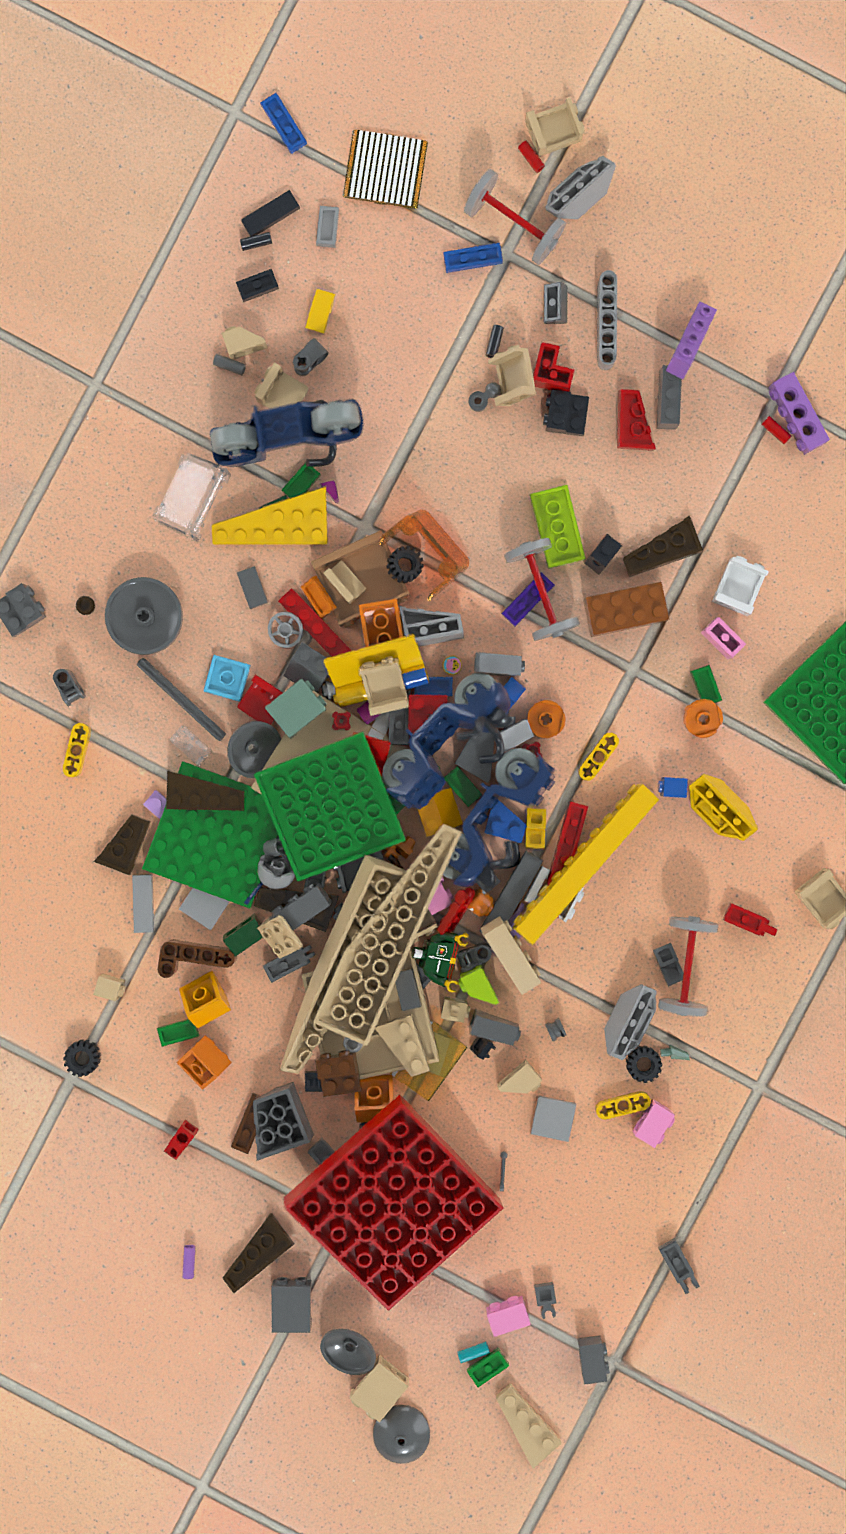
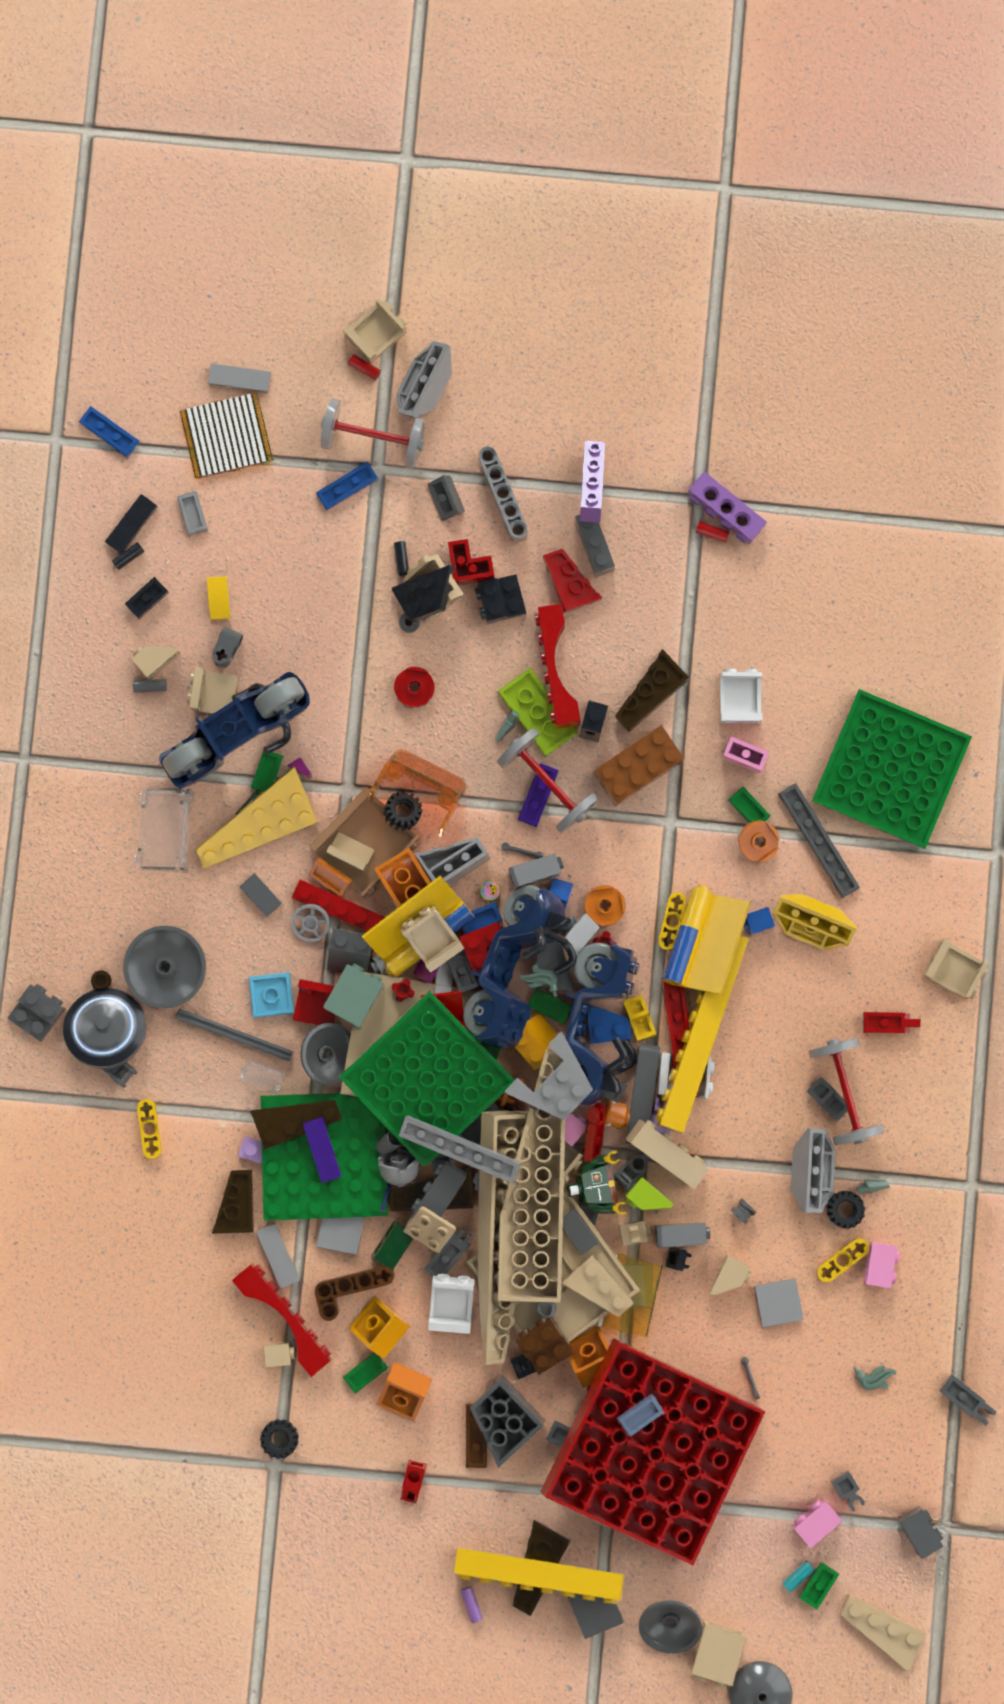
camera: 20 degrees left, 5 degrees down
(71, 648) = (104, 1028): none -> dish
(113, 921) = (254, 1285): none -> red arch
(215, 829) = (322, 1149): none -> dark purple tile
(255, 1264) = (539, 1574): none -> yellow brick
(273, 1006) = (451, 1304): none -> white panel
(333, 880) = (460, 1149): none -> light grey plate
(395, 1172) = (640, 1415): none -> sand blue tile
(417, 121) = (239, 378): none -> light grey tile
(443, 865) = (562, 1089): none -> light grey wing
(461, 471) = (405, 694): none -> red plate
(465, 759) = (541, 977): none -> sand green piece
(481, 632) = (505, 846): none -> dark grey hinge
(502, 380) = (424, 594): none -> black wing
(526, 527) = (507, 725): none -> sand green bar
(584, 531) = (565, 707): none -> red arch
(608, 1216) = (875, 1379): none -> sand green piece
(621, 787) = (706, 941): none -> yellow door
(754, 739) = (818, 840): none -> dark grey tile

